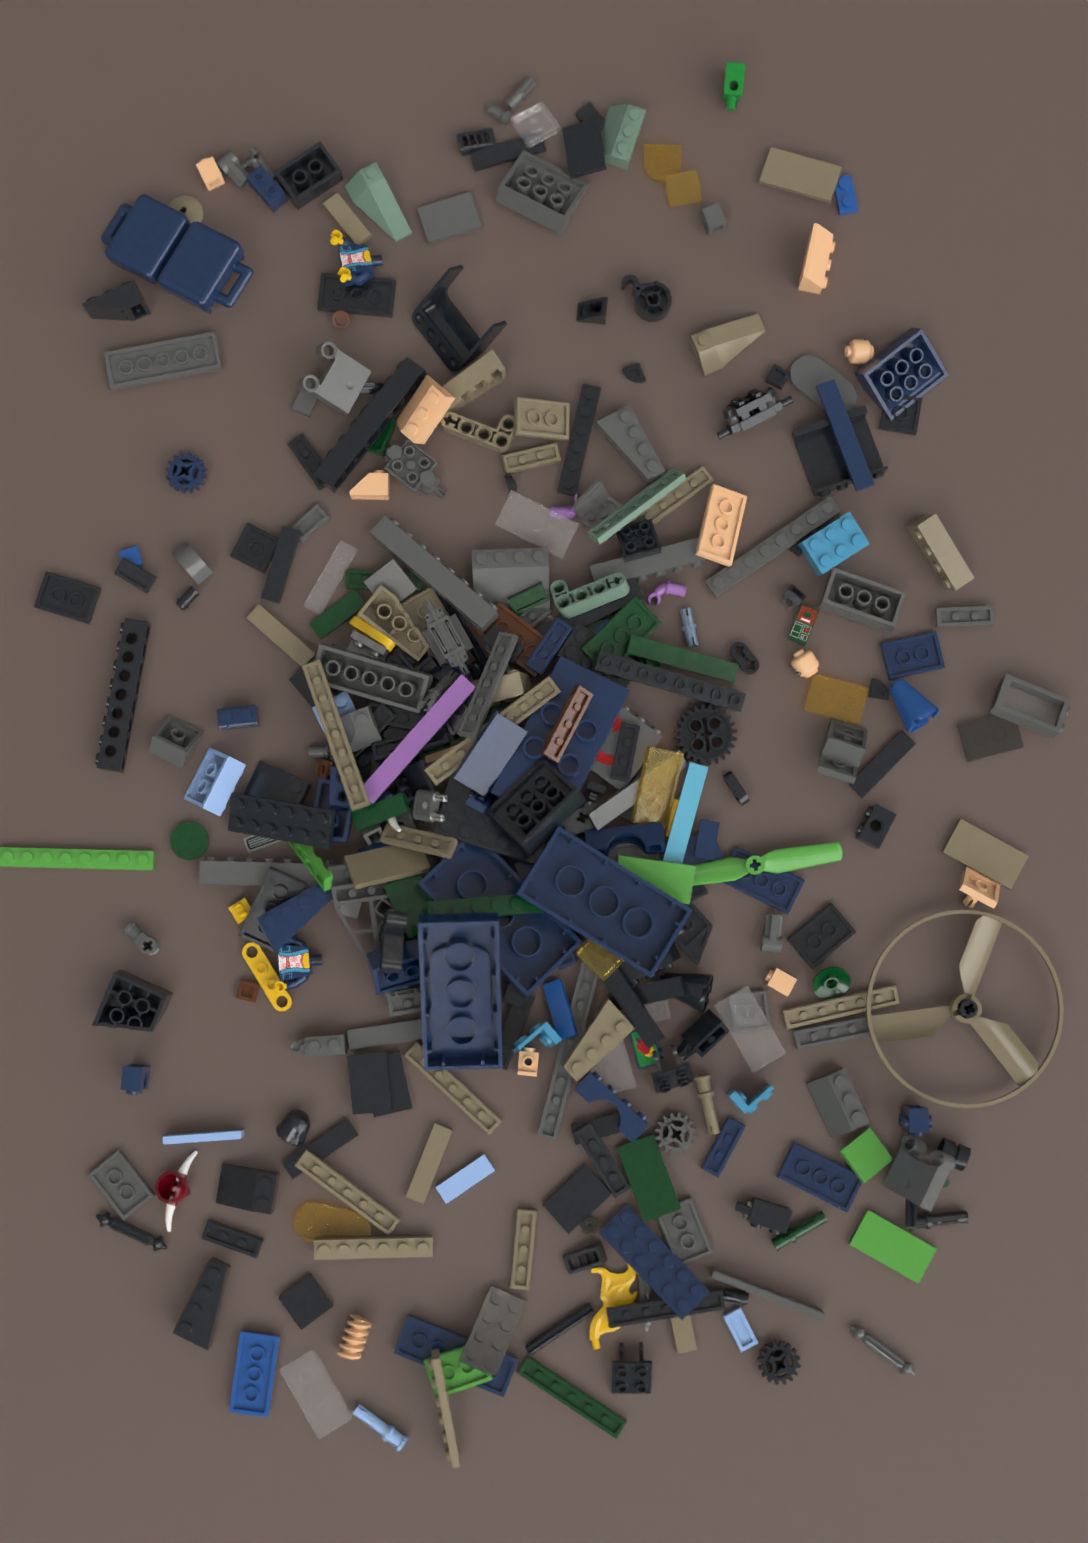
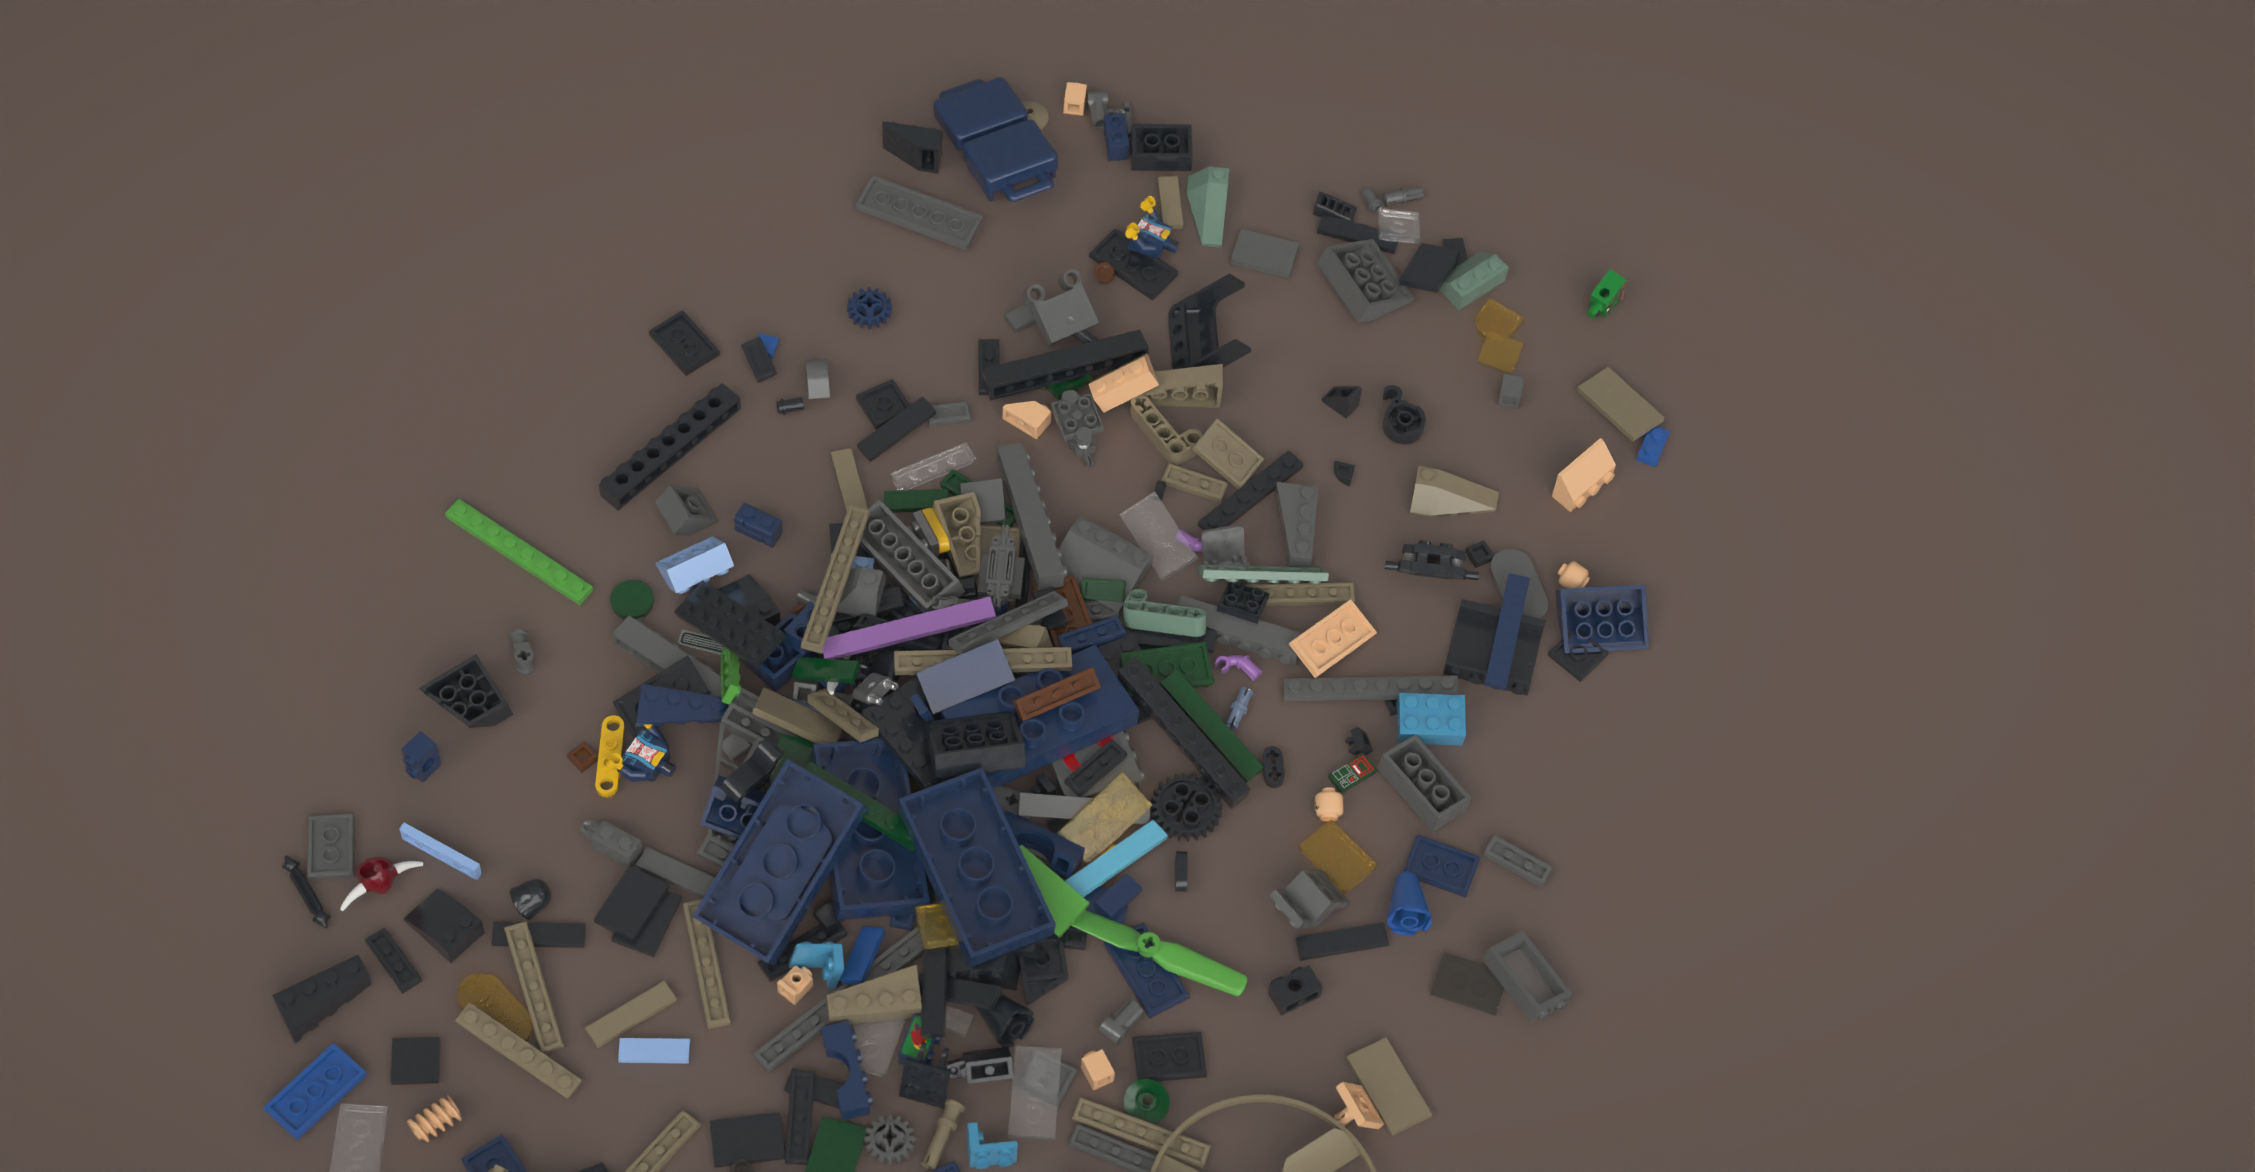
camera: 30 degrees right, 25 degrees down
(240, 910) = (629, 682): yellow tile -> none
(878, 690) = (1385, 875): black tile -> none
(940, 551) = (1532, 787): dark tan wedge -> none

